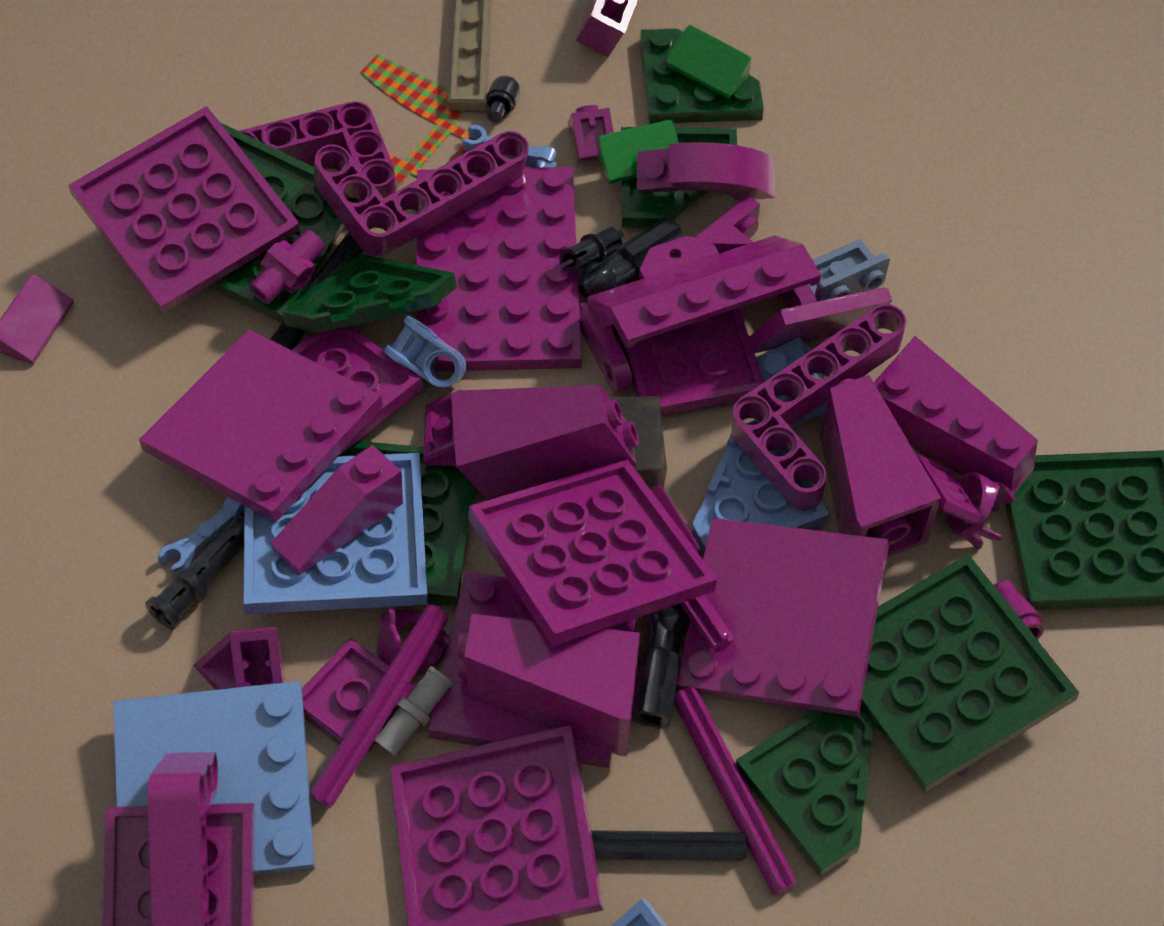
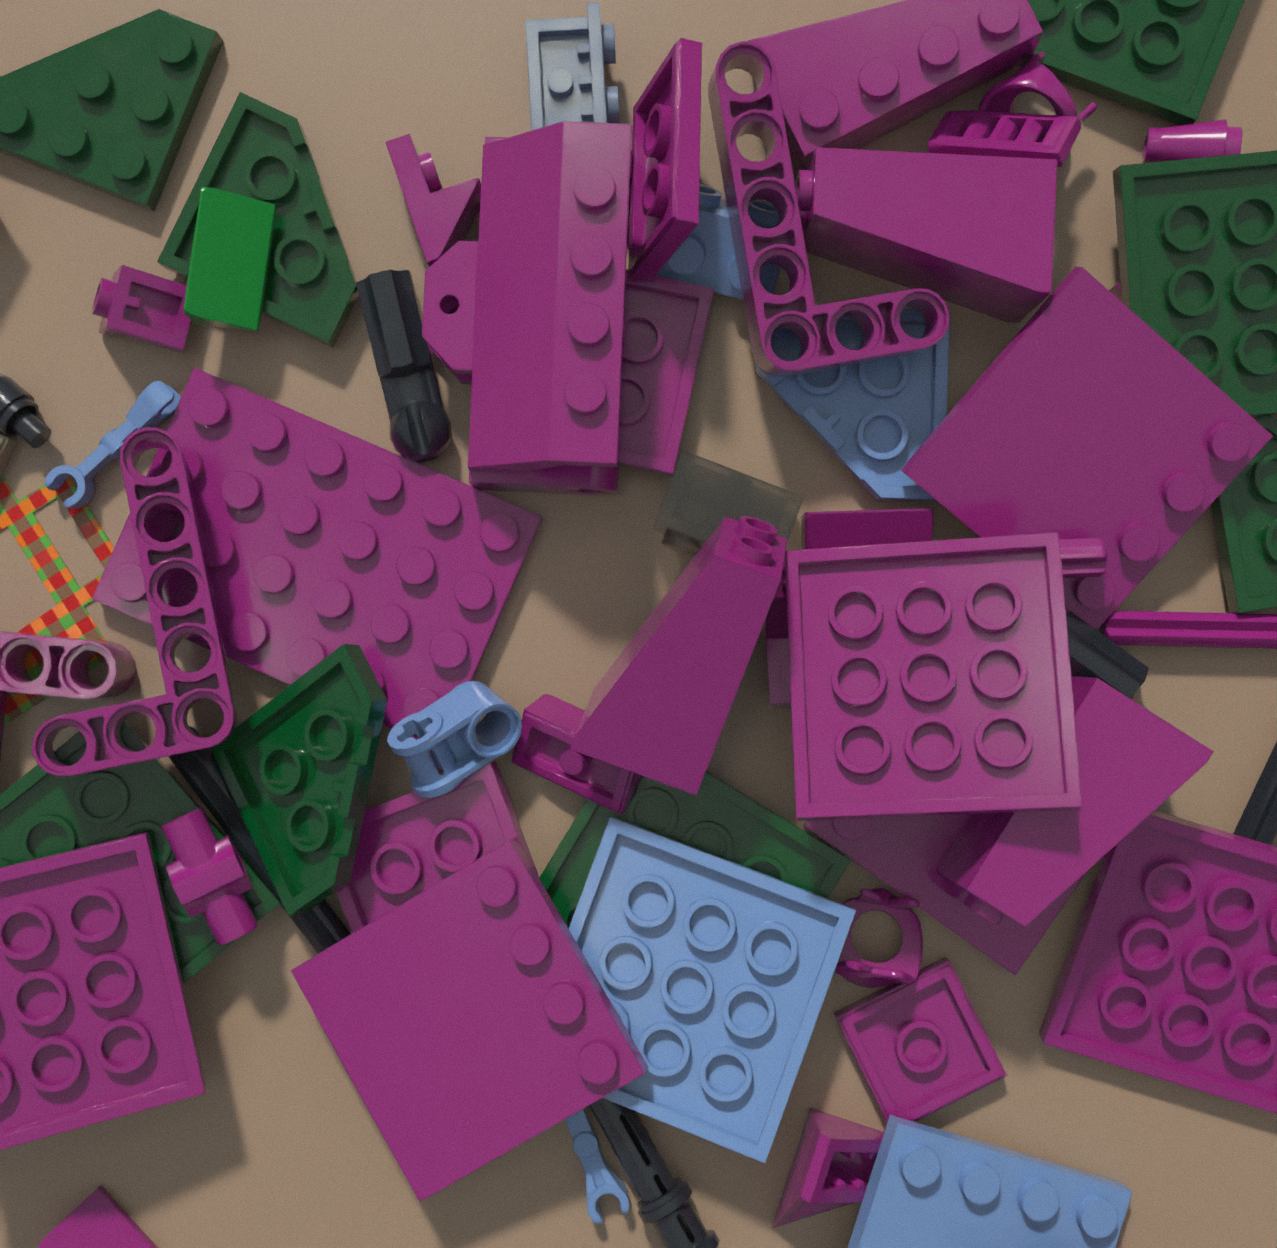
camera: 65 degrees left, 30 degrees up
(341, 509) = (685, 983): magenta slope -> none
(379, 706) = (968, 1027): magenta axle -> none
(413, 711) = (988, 986): light grey pin -> none
(591, 249) = (366, 414): black axle -> none
(708, 167) = (321, 185): magenta arch -> none
(709, 61) = (101, 68): green slope -> none

